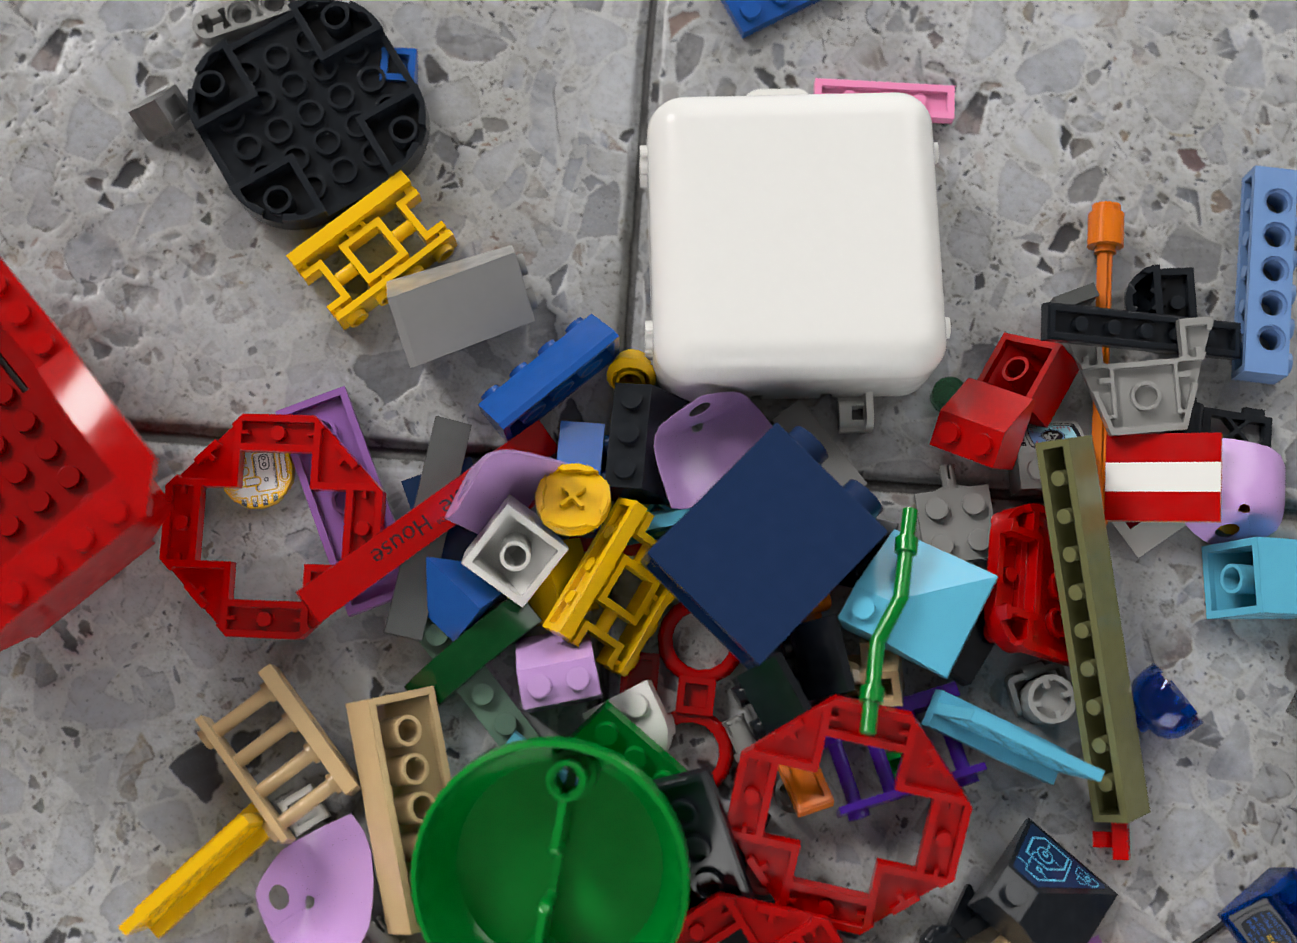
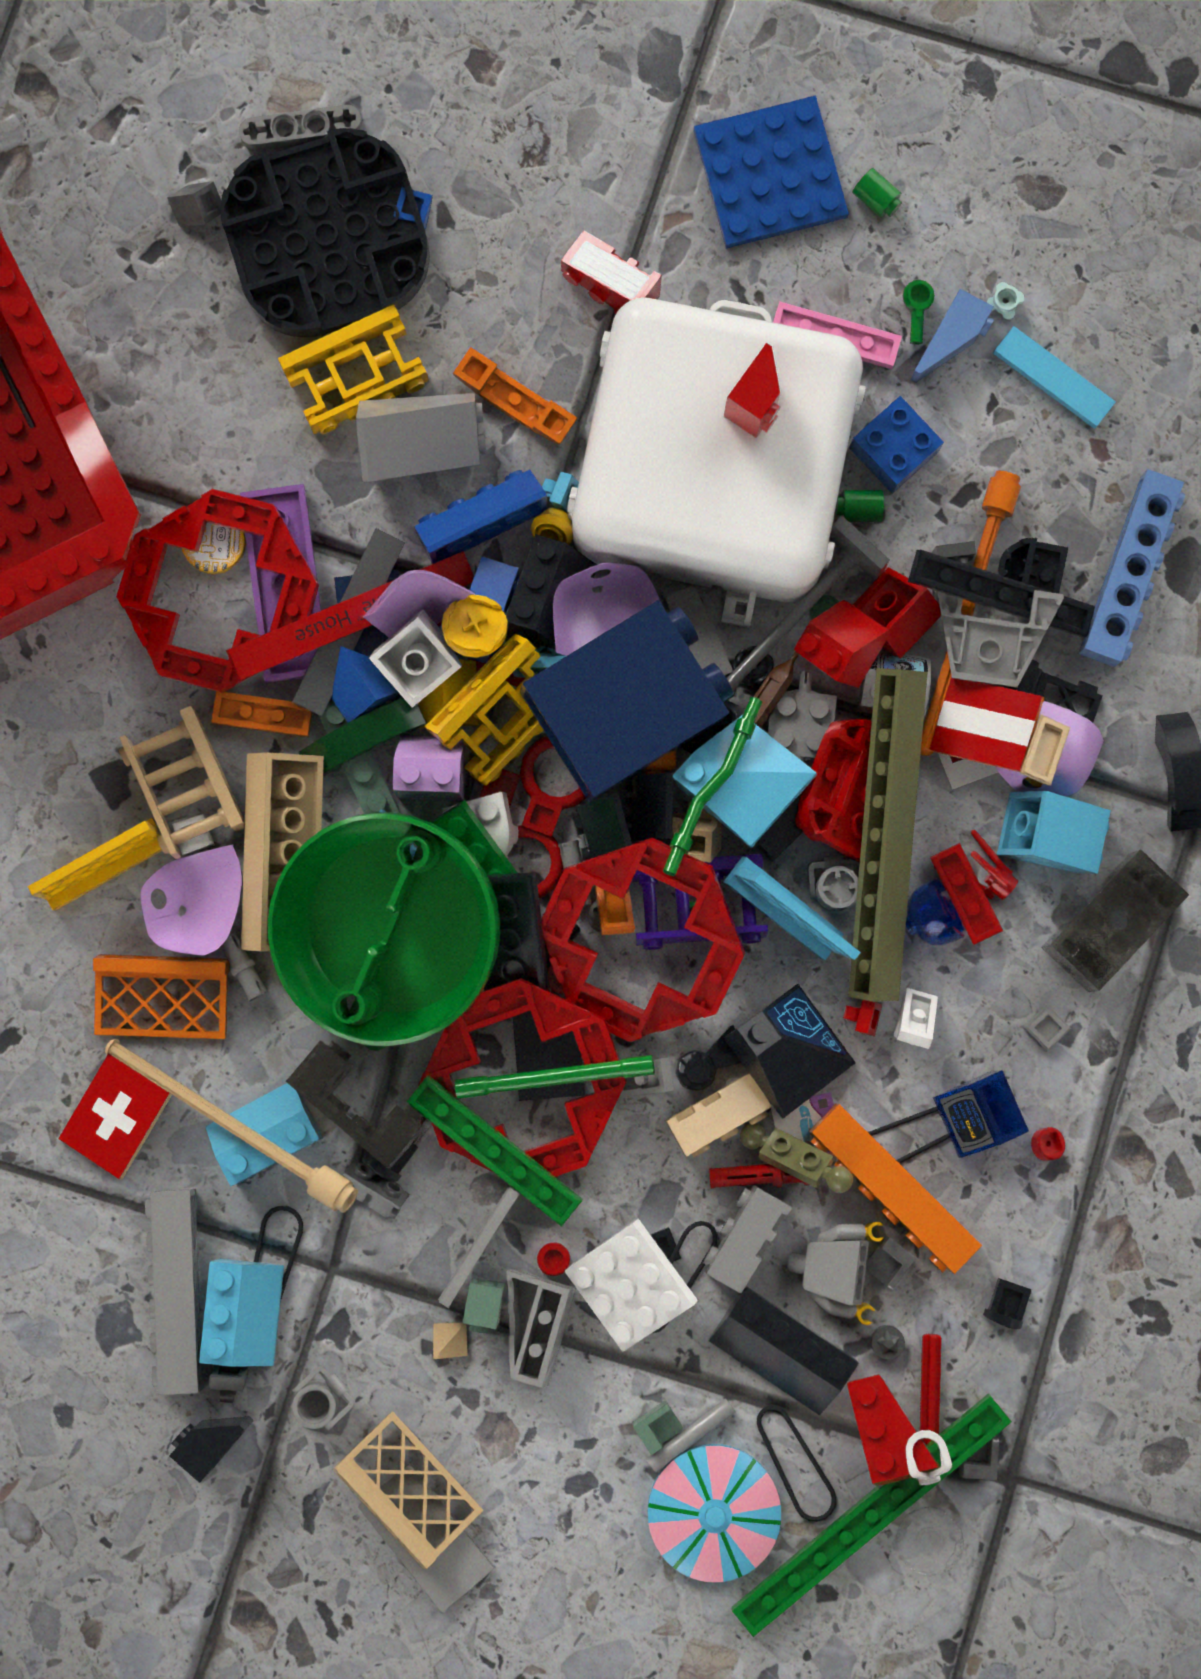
camera: 15 degrees right, 5 degrees up
(352, 654) = (261, 714): none -> orange plate
(555, 243) = (514, 398): none -> orange slope
(623, 89) = (606, 274): none -> wedge
(632, 329) = (560, 490): none -> medium azure tile
(835, 170) = (756, 395): none -> red slope
(895, 464) = (762, 670): none -> black plate
(918, 488) = (774, 688): none -> reddish brown piece
(959, 44) = (918, 297): none -> green plate
(963, 272) = (861, 505): none -> green brick
(970, 321) = (856, 551): none -> dark grey tile
(980, 199) = (896, 444): none -> blue brick
(1012, 64) = (958, 331): none -> medium blue slope
(1053, 18) = (1013, 296): none -> light aqua plate
(1124, 94) = (1054, 377): none -> medium azure tile
(1175, 829) = (916, 1018): none -> white slope
(1189, 671) = (966, 893): none -> red tile
(1218, 645) = (1000, 878): none -> red plant
(1240, 492) = (1045, 750): none -> tan tile

